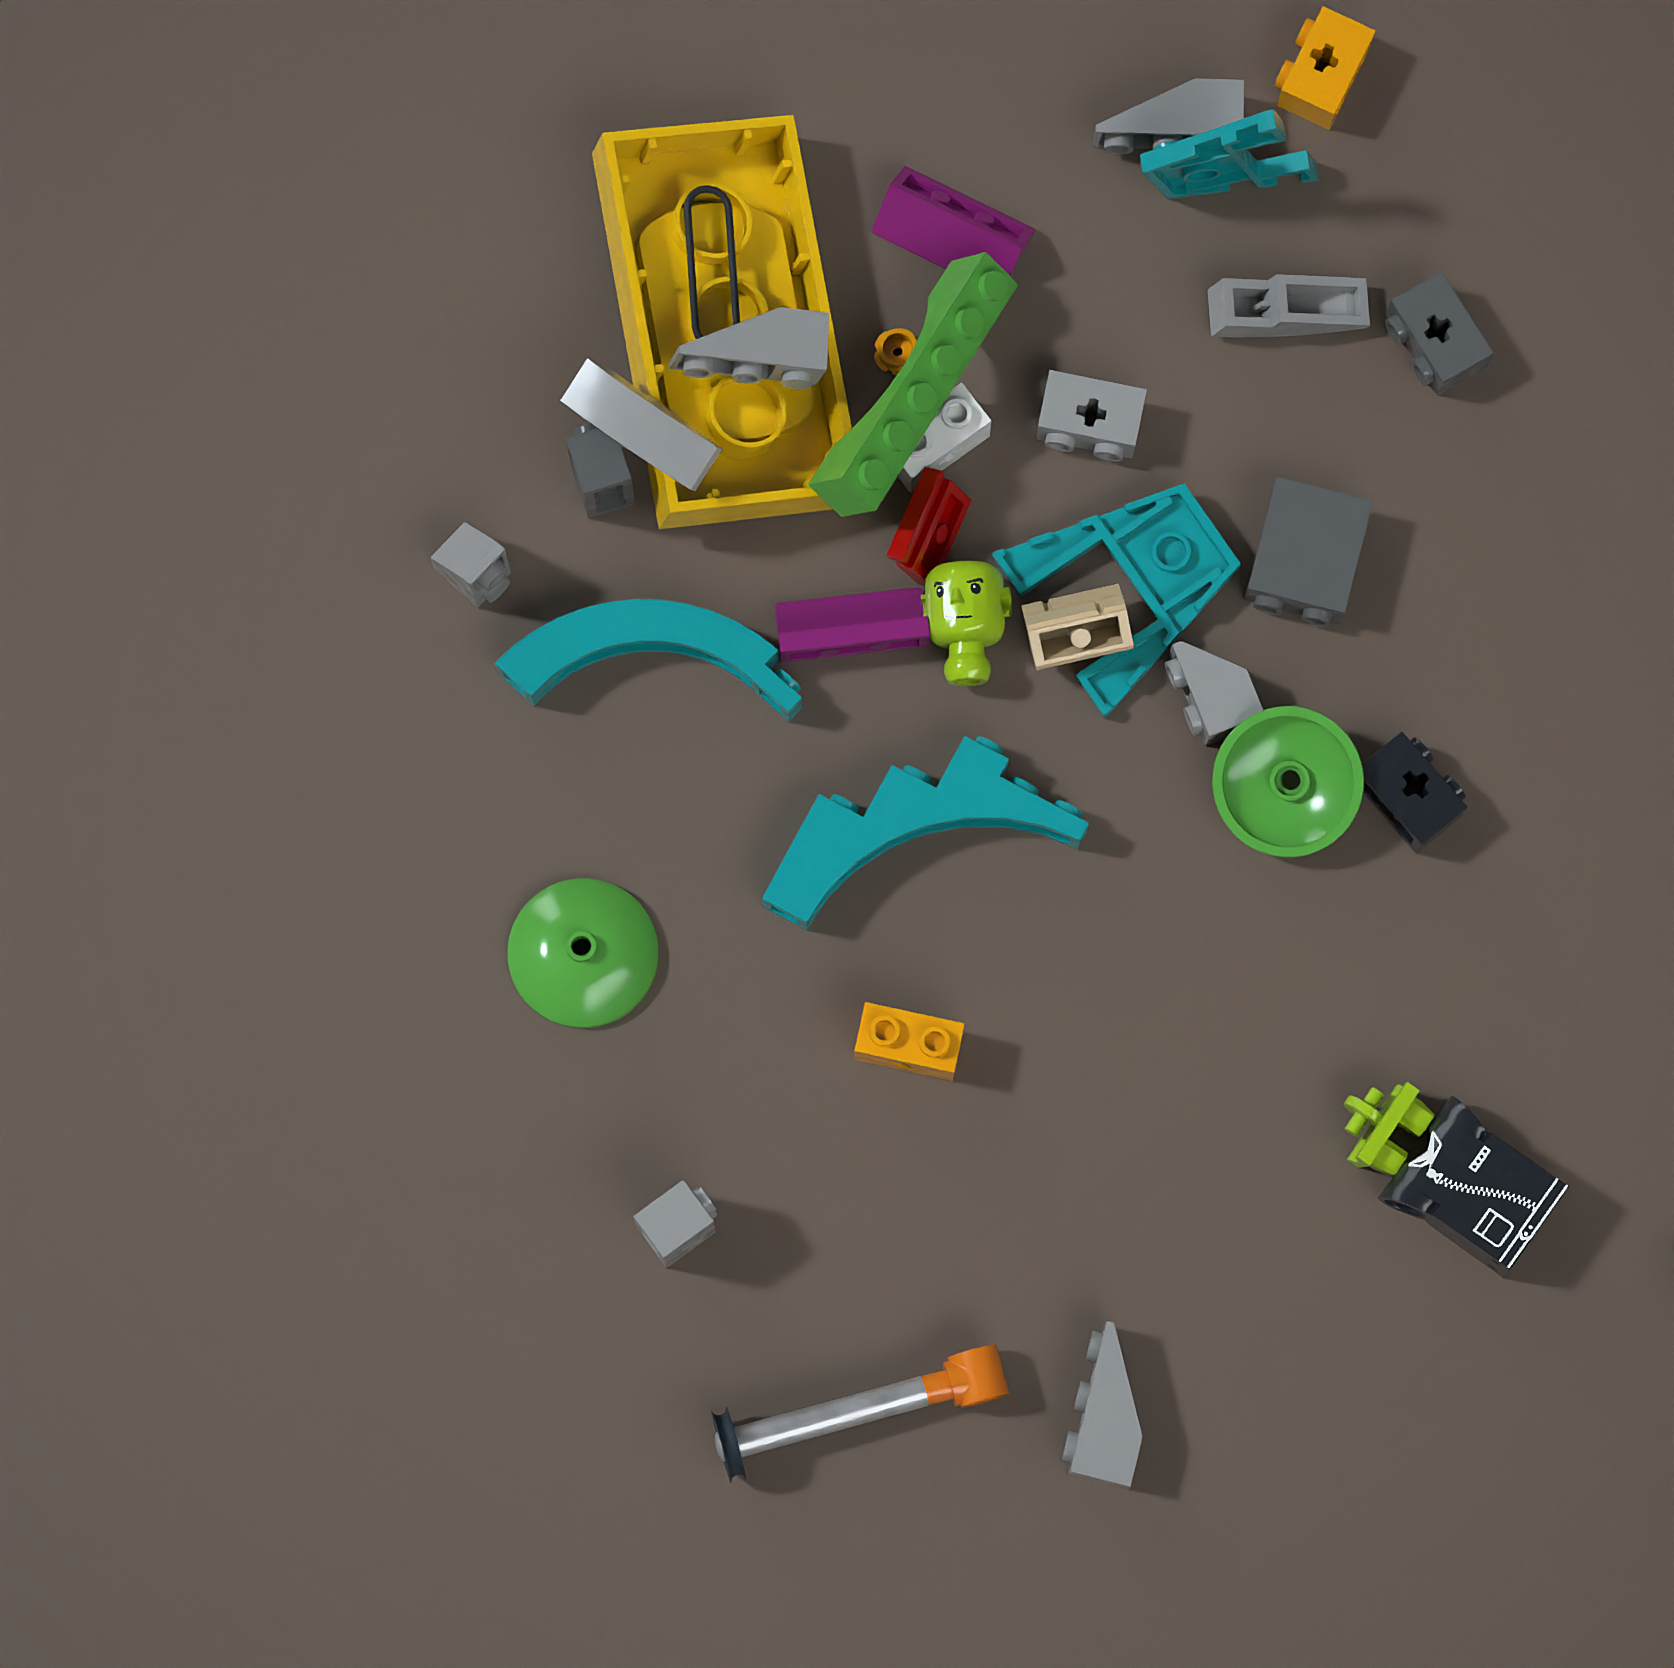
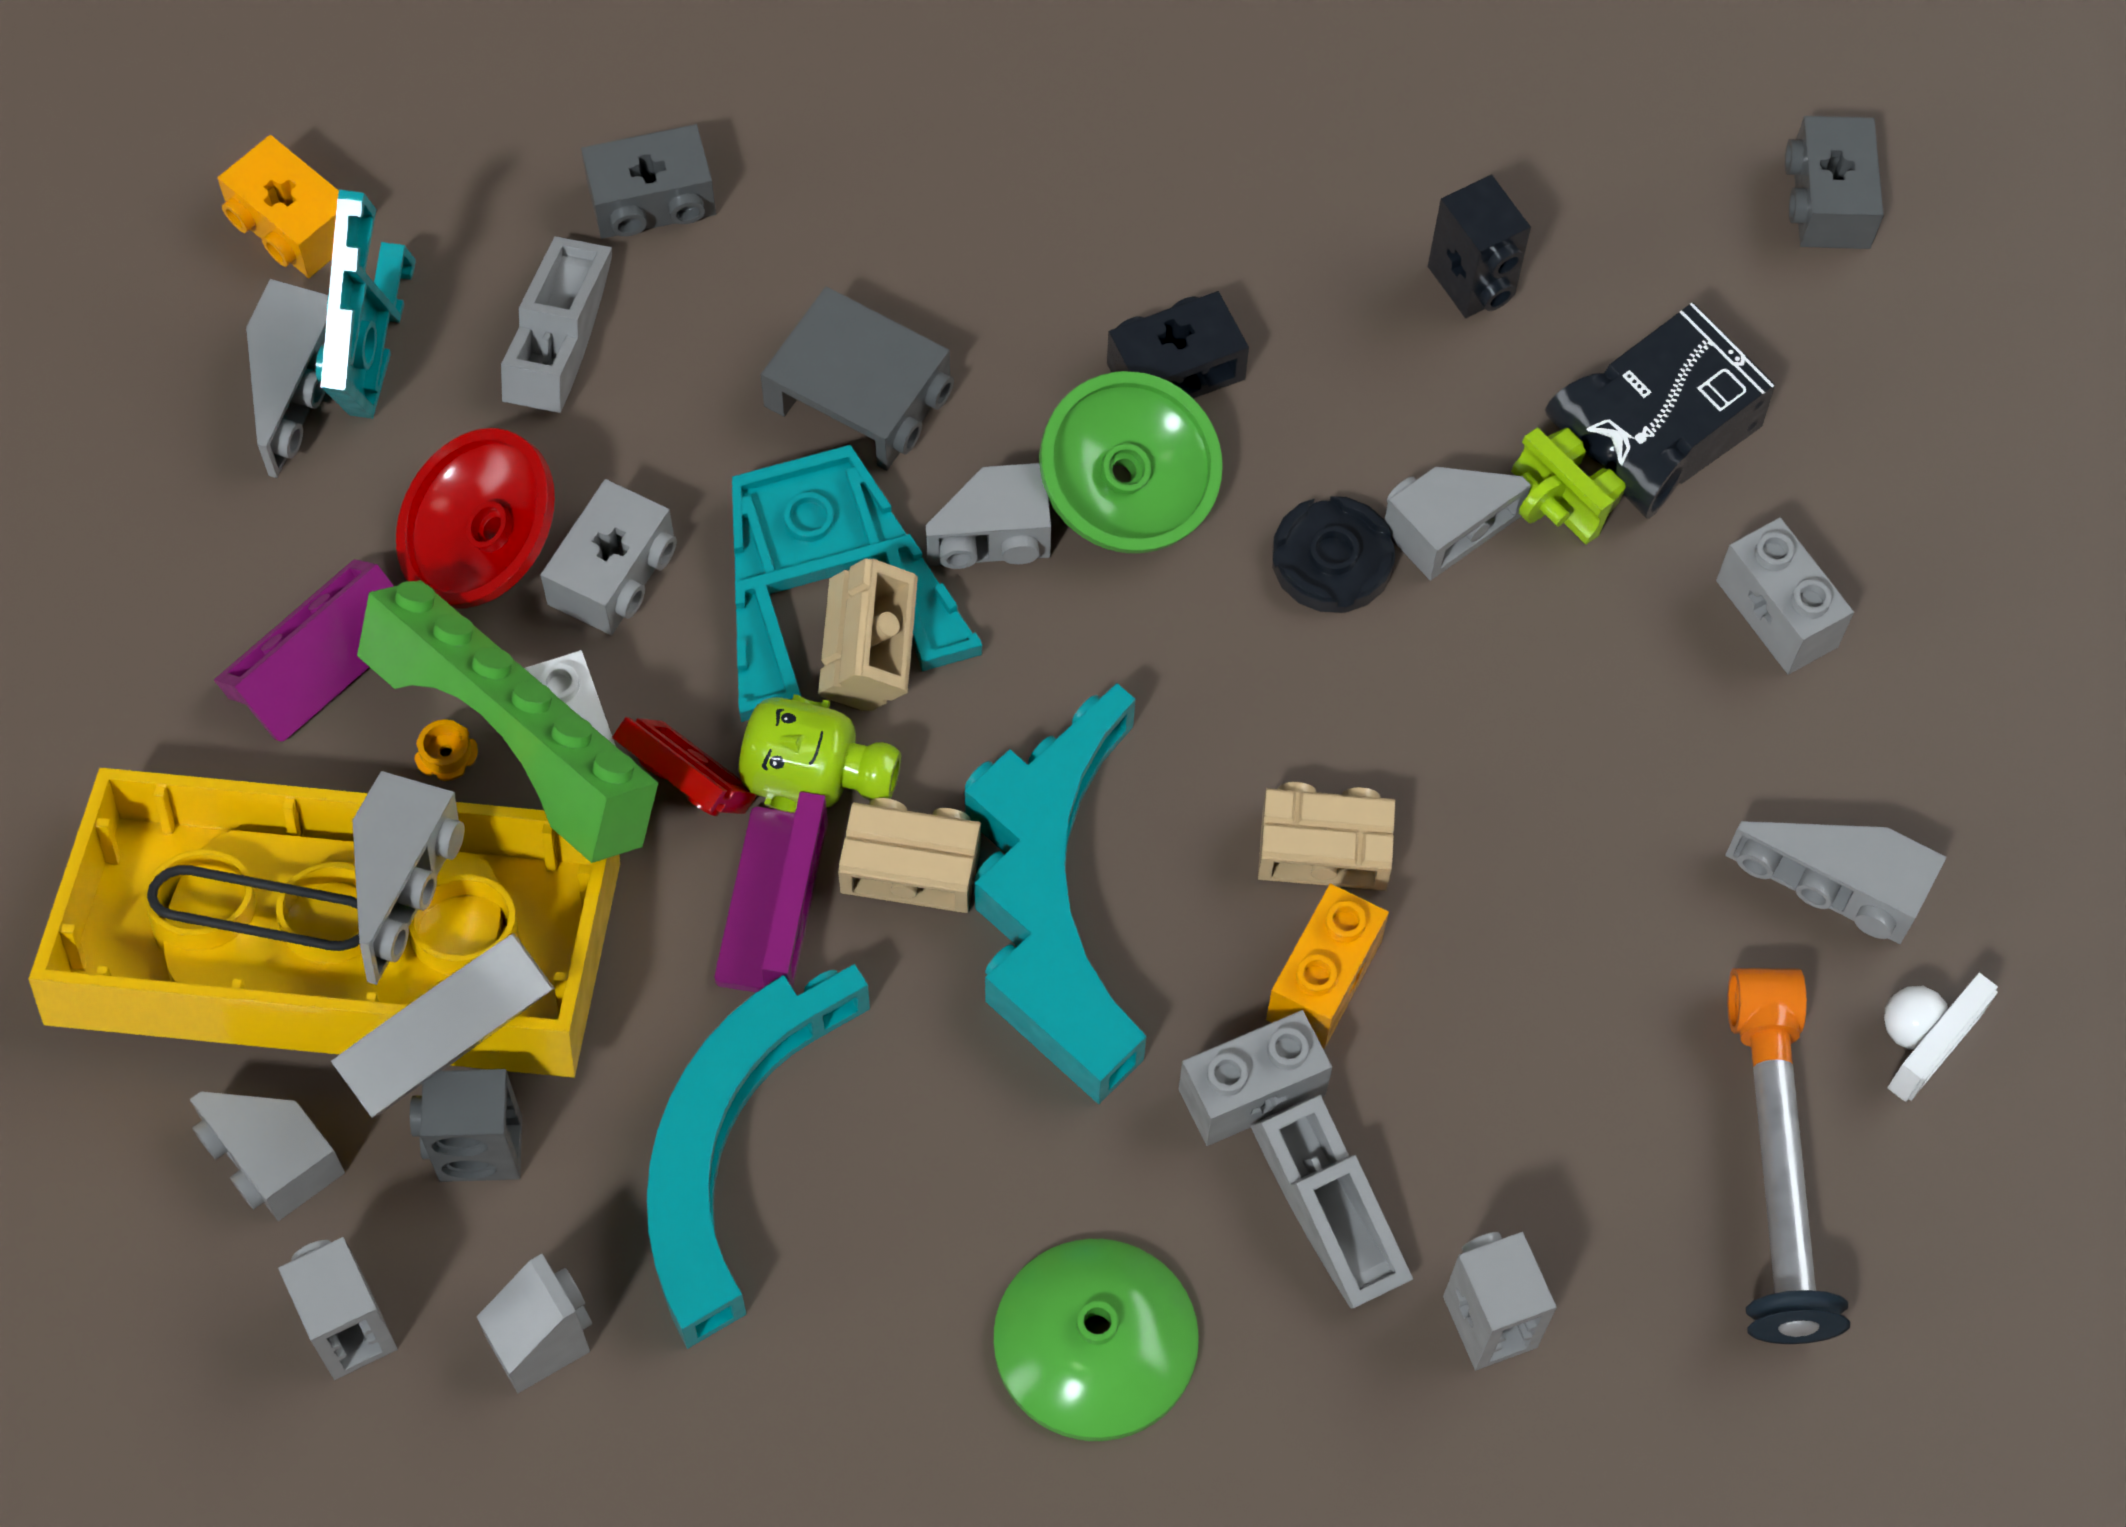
camera: 75 degrees left, 15 degrees down
(445, 426) = (337, 1306): none -> light grey brick
(552, 342) = (272, 1145): none -> light grey slope
(729, 1090) = (1332, 1200): none -> light grey slope
(803, 1010) = (1254, 1077): none -> light grey brick
(909, 713) = (910, 855): none -> tan brick
(996, 1497) = (1923, 1023): none -> white tile
(1017, 1015) = (1326, 837): none -> tan brick
(1084, 305) = (476, 516): none -> red dish
(1272, 962) = (1333, 554): none -> black tile
(1329, 1042) = (1451, 514): none -> light grey slope
(1334, 1321) = (1784, 595): none -> light grey brick
(1576, 1005) = (1478, 246): none -> black brick

